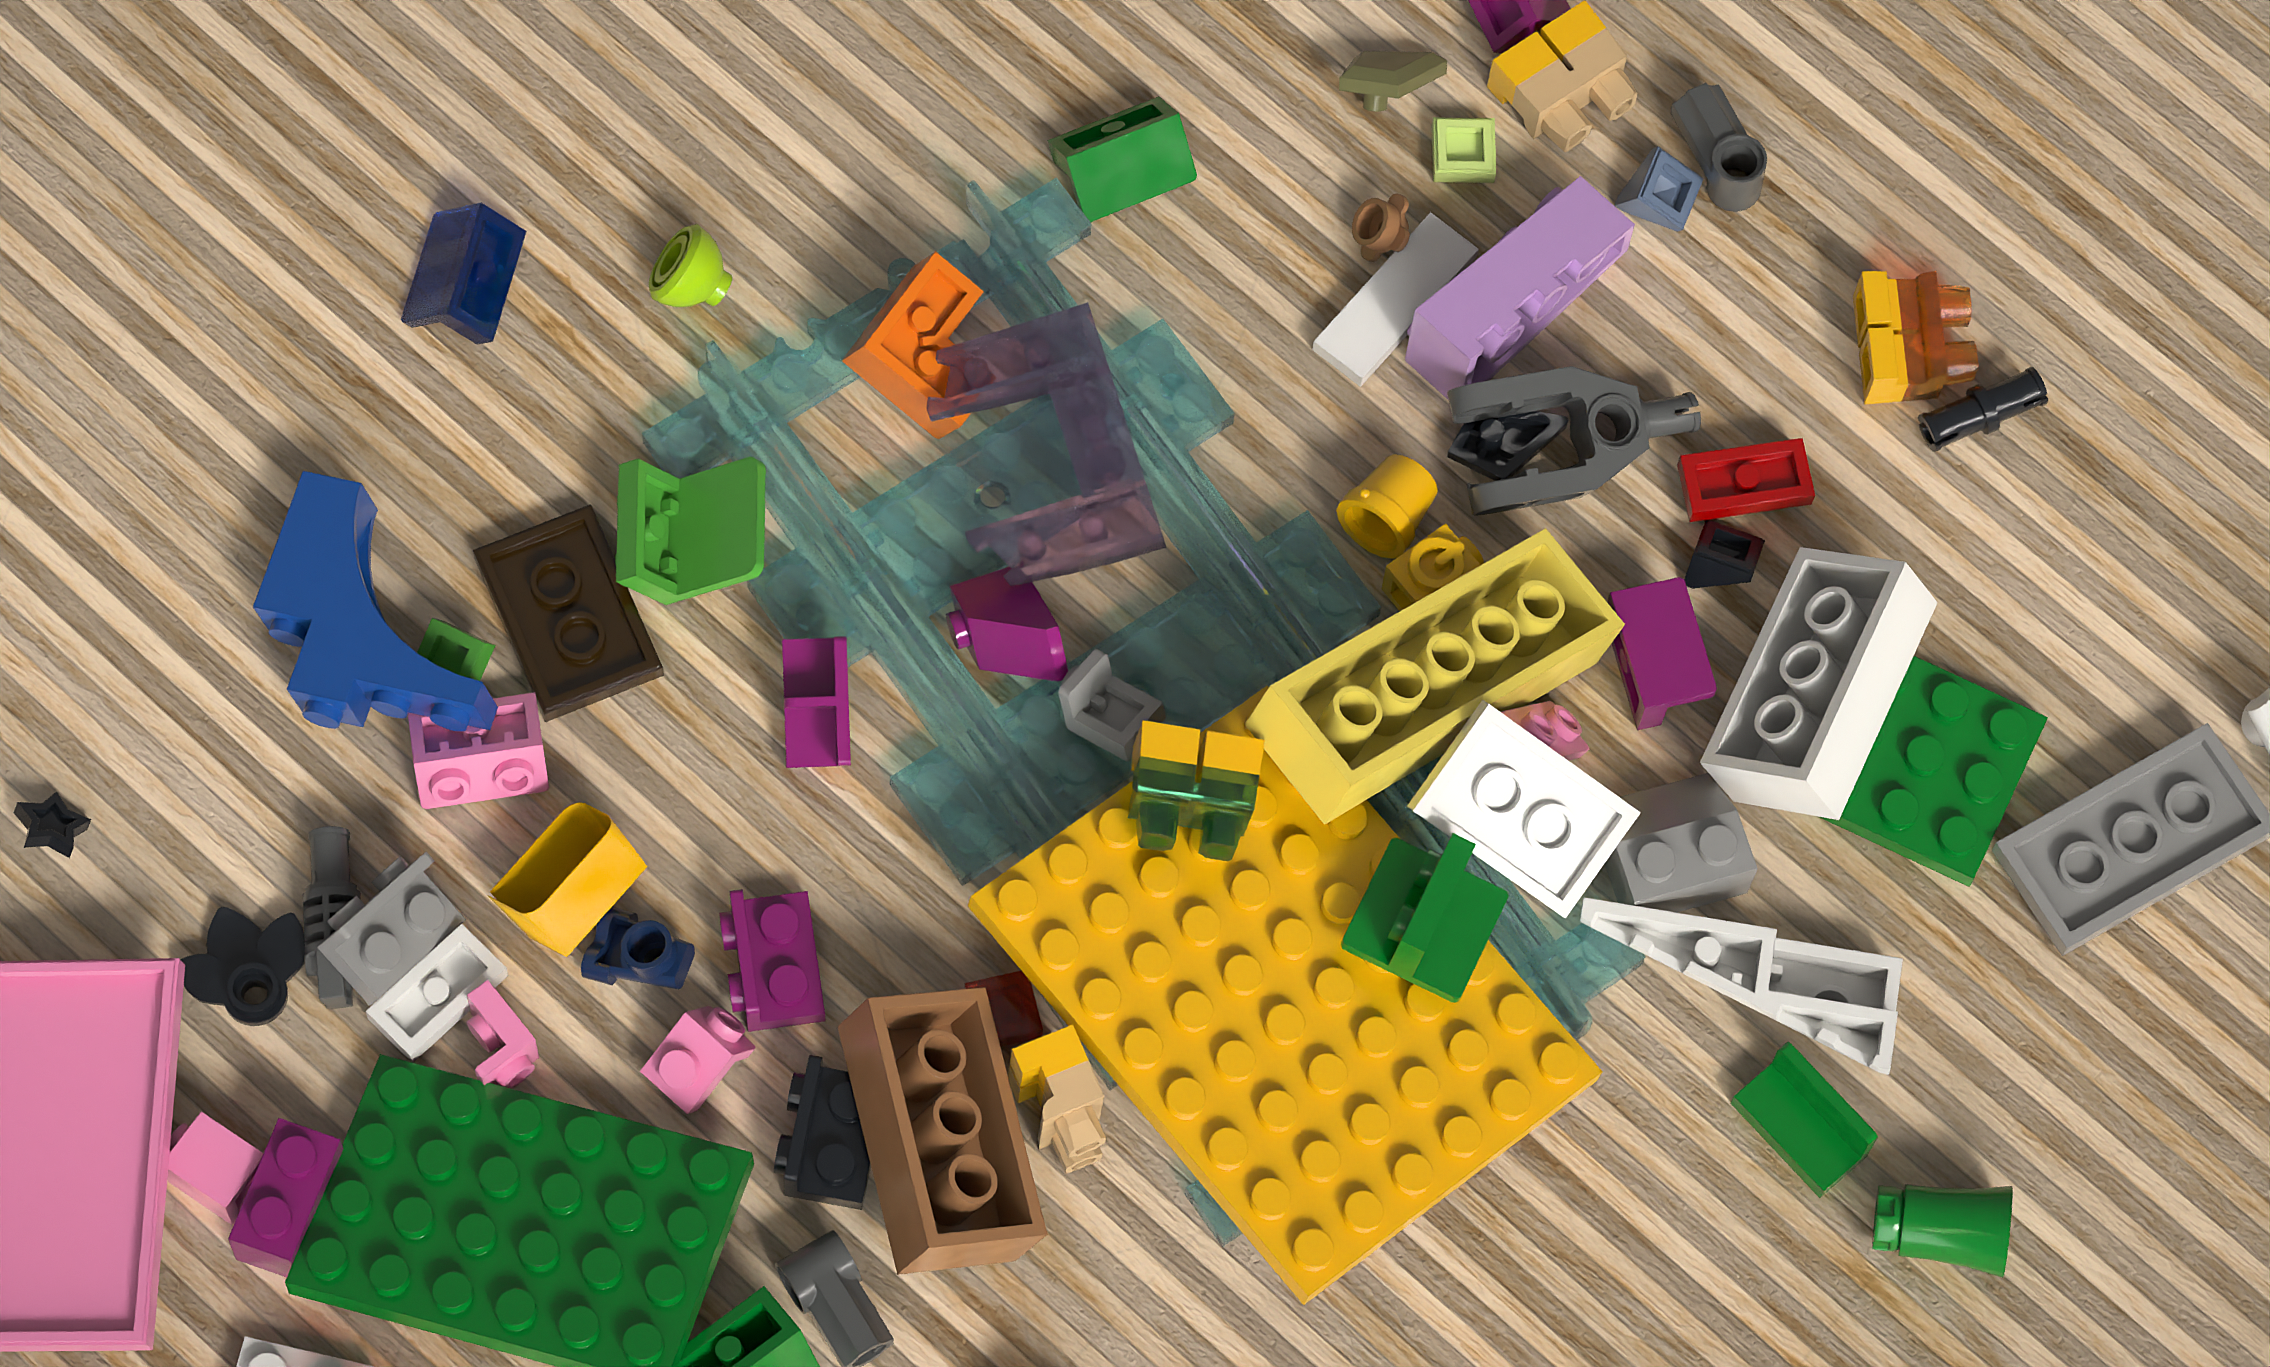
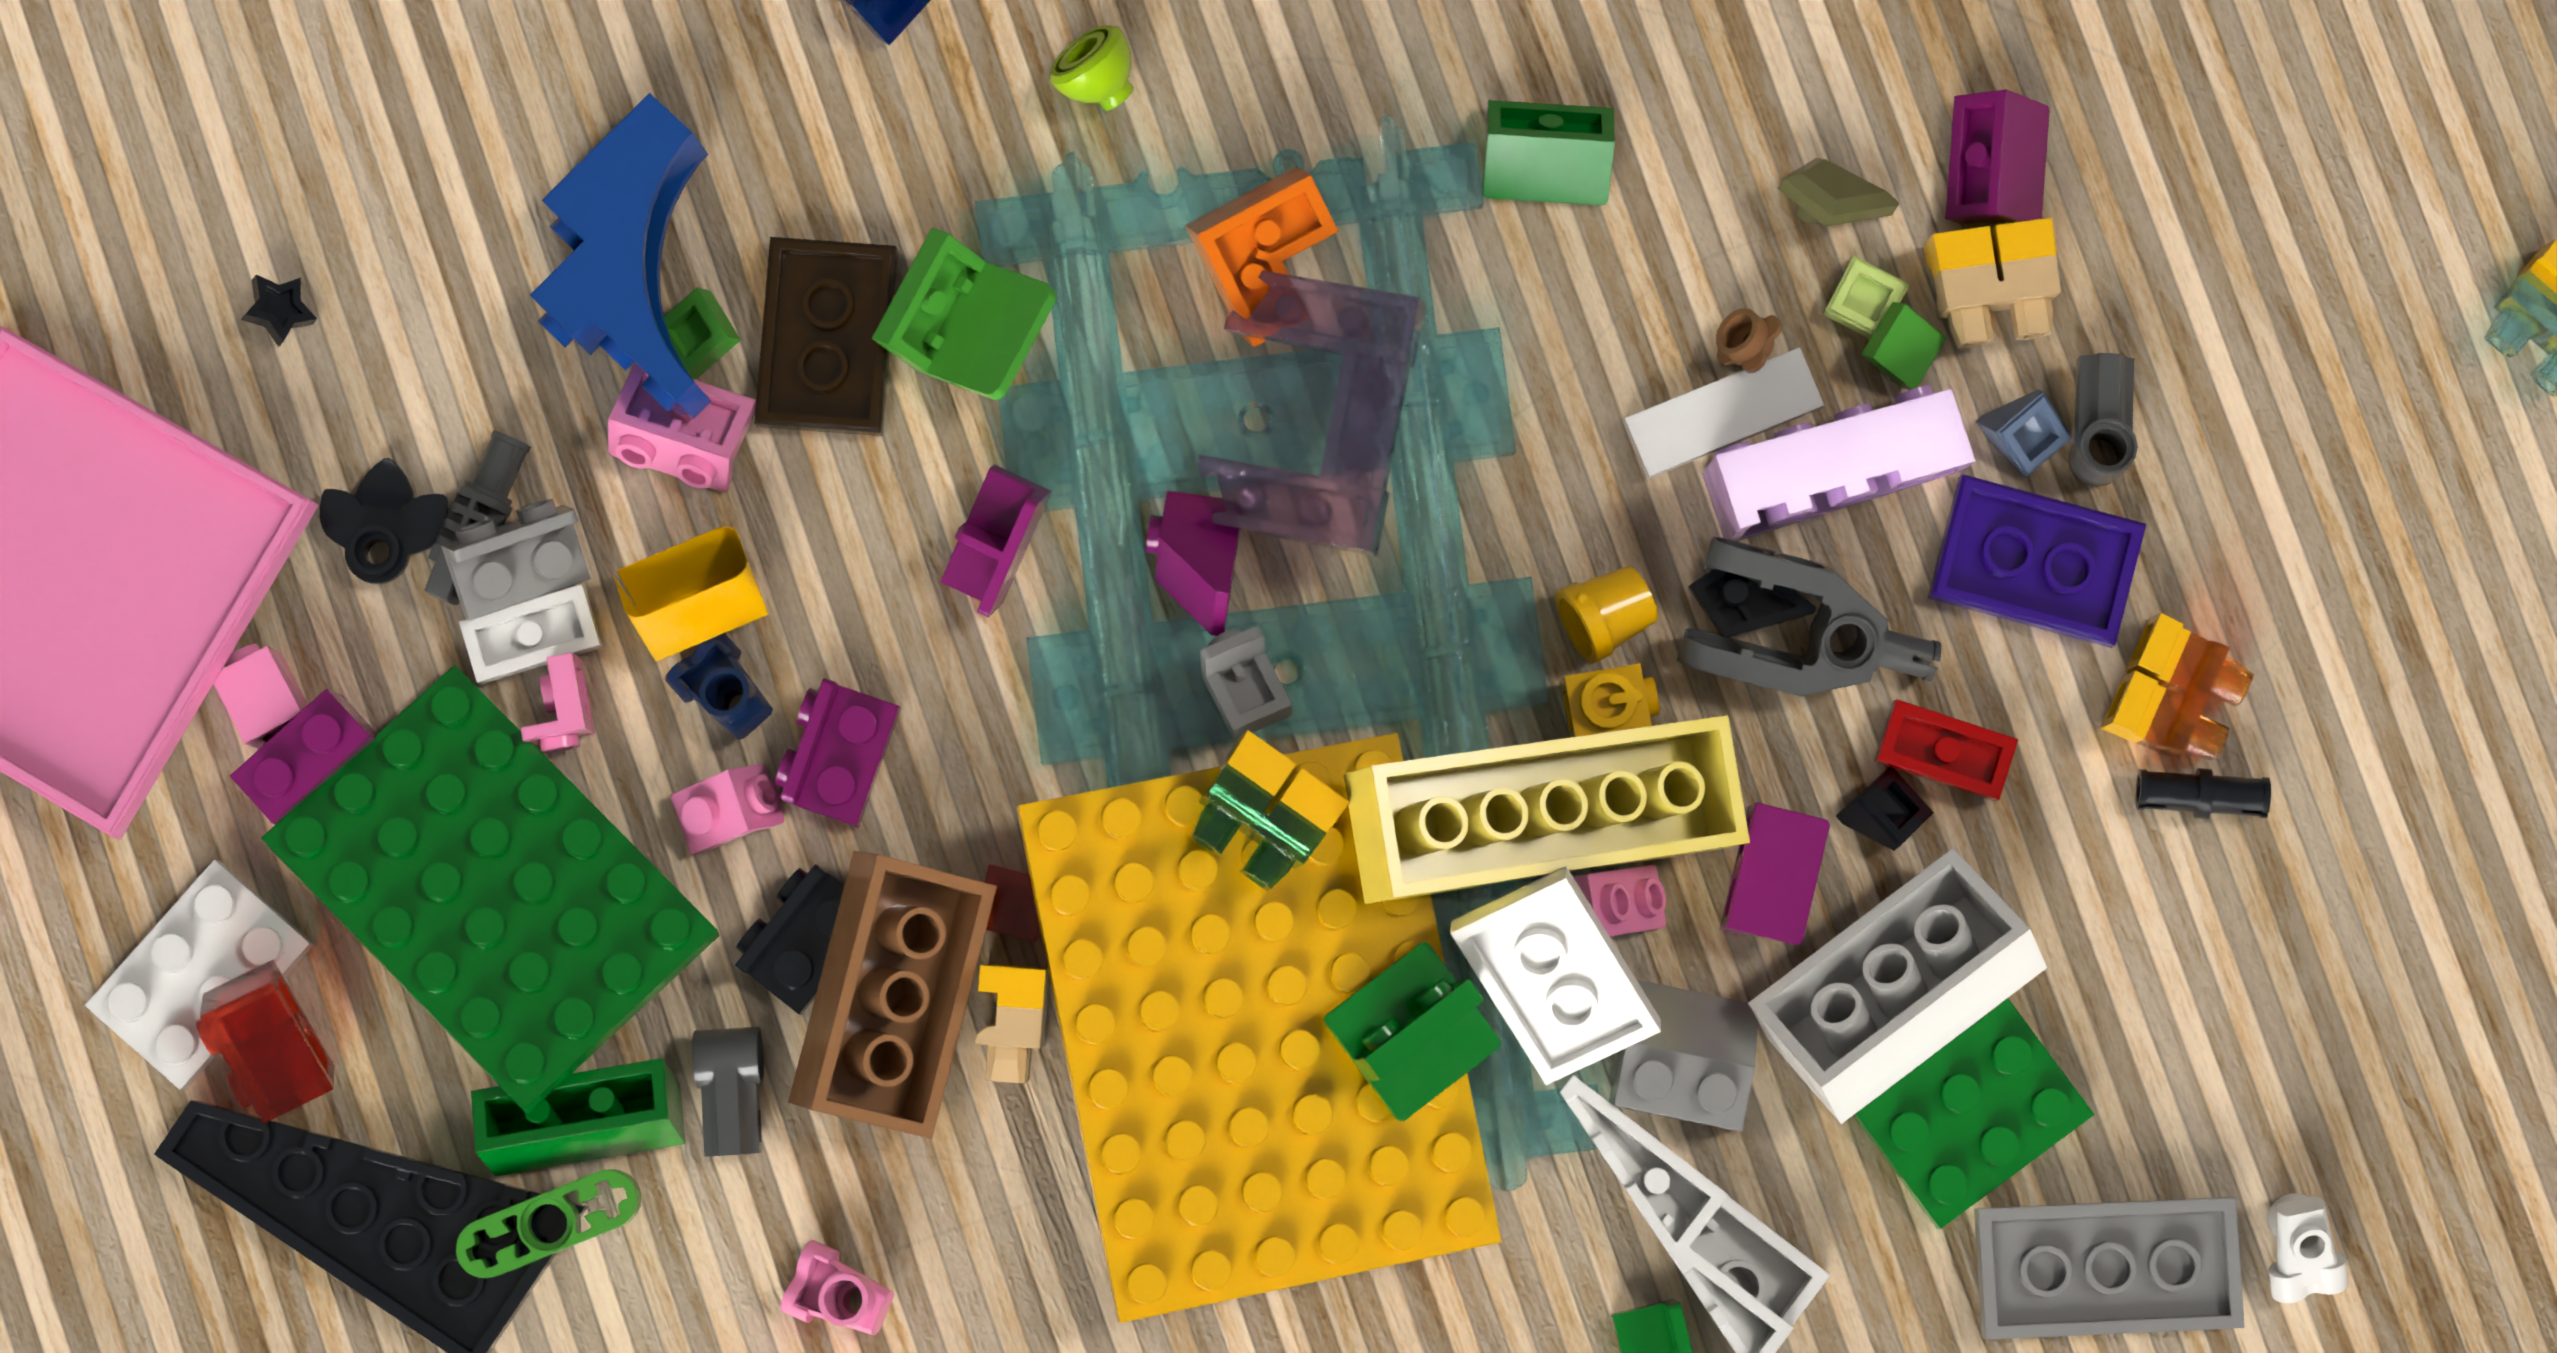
camera: 30 degrees right, 15 degrees up
(1518, 168) = (1903, 346): none -> bright green tile
(1731, 292) = (2037, 561): none -> dark purple tile

